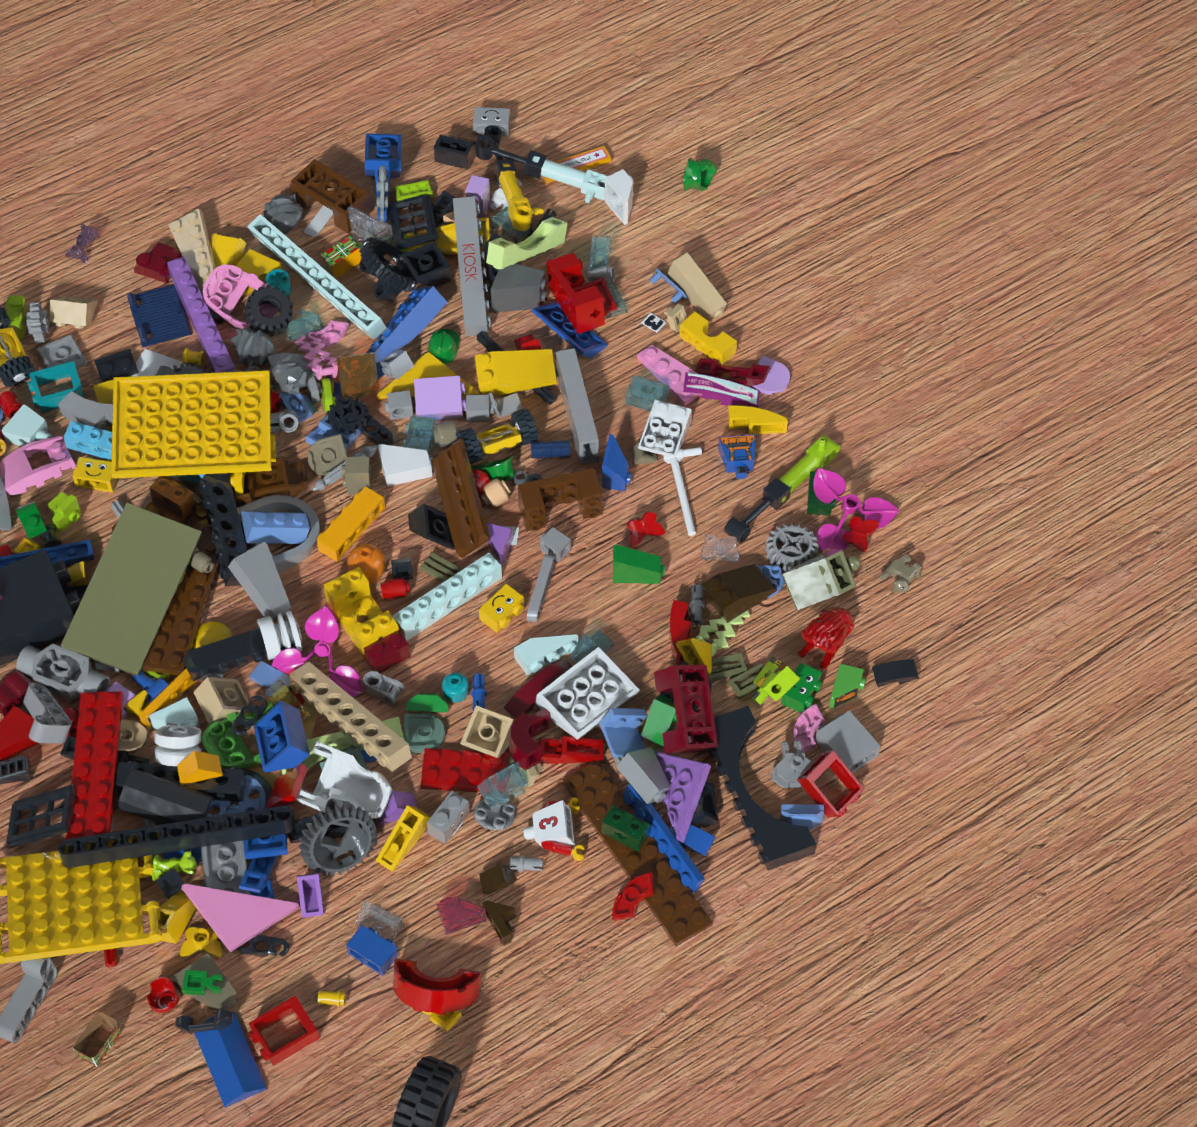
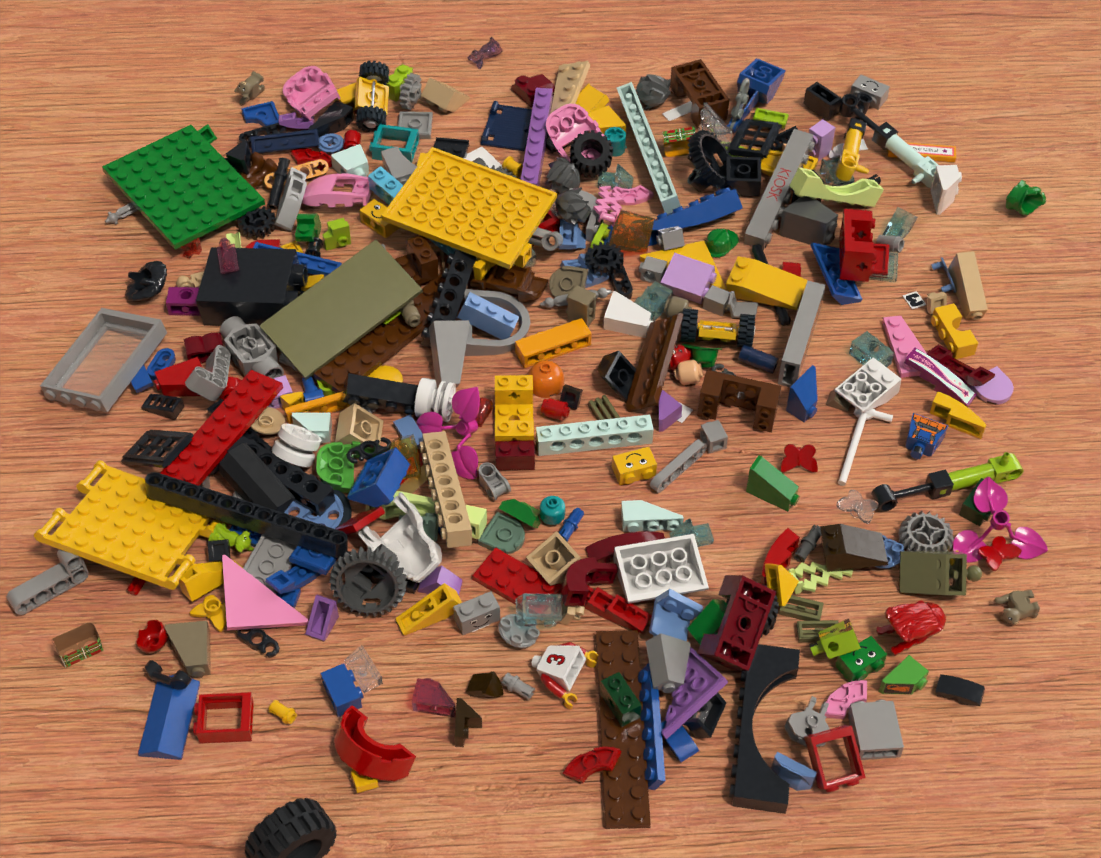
camera: 30 degrees right, 5 degrees down
(198, 981) = (180, 639): green plate -> none
(199, 767) = (298, 468): light orange slope -> none

